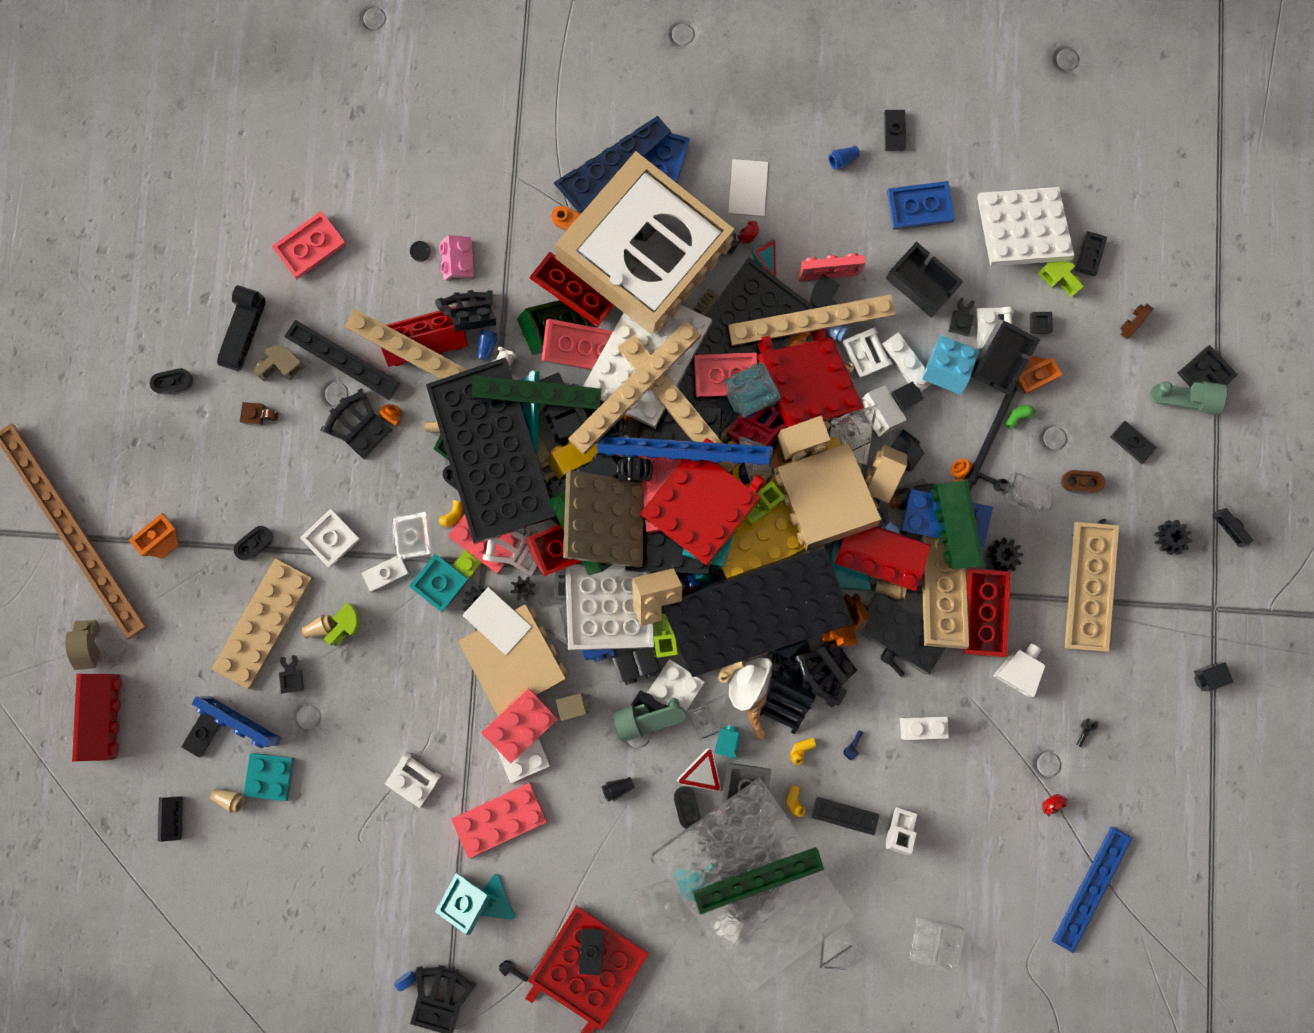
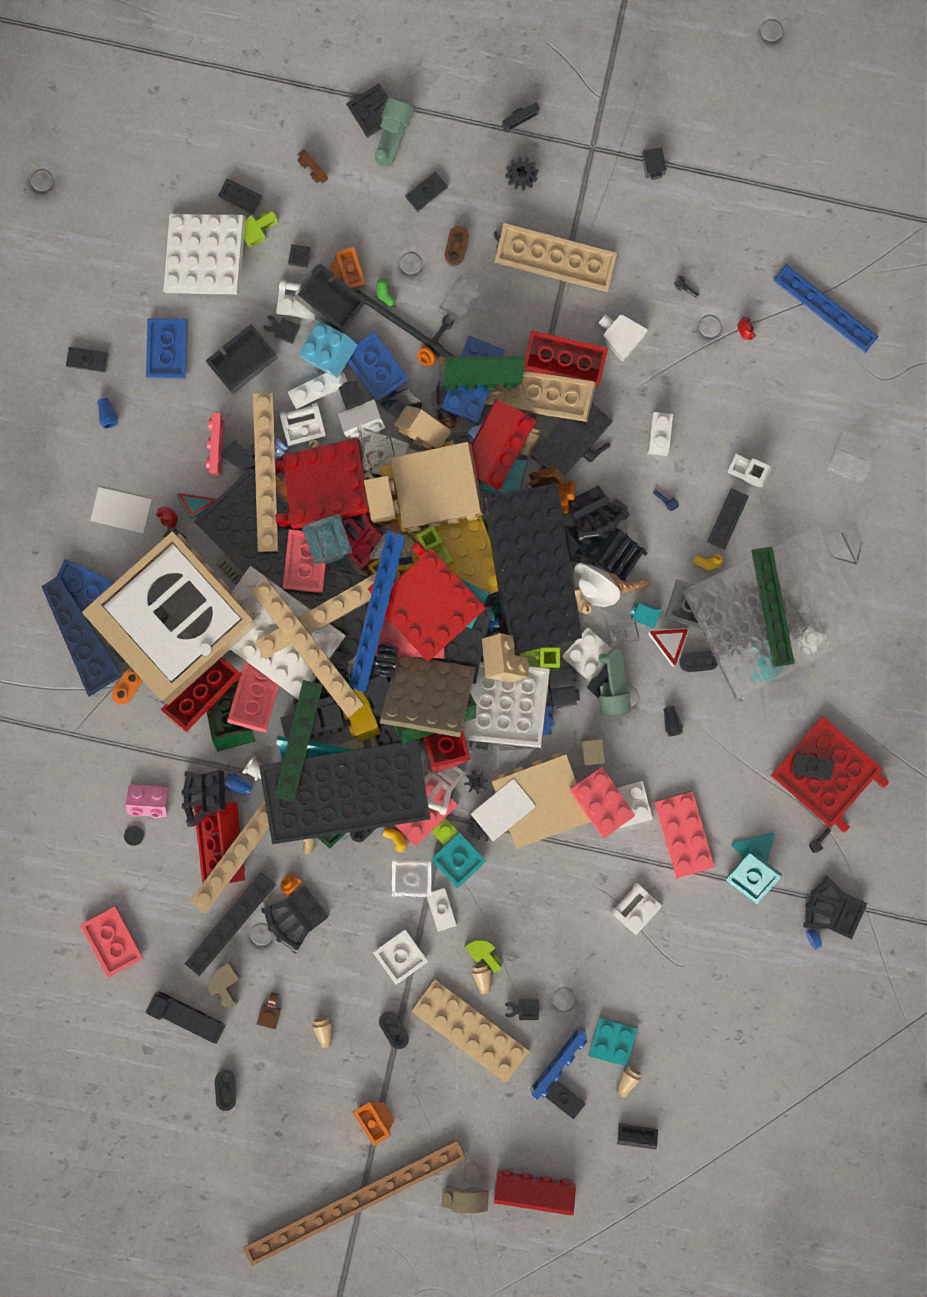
camera: 80 degrees left, 5 degrees up
(244, 470) = (322, 1029): none -> tan cone
(799, 749) = (662, 550): yellow arm -> none
(939, 418) = (376, 367): none -> blue plate
(1007, 547) = (508, 334): black gear -> none

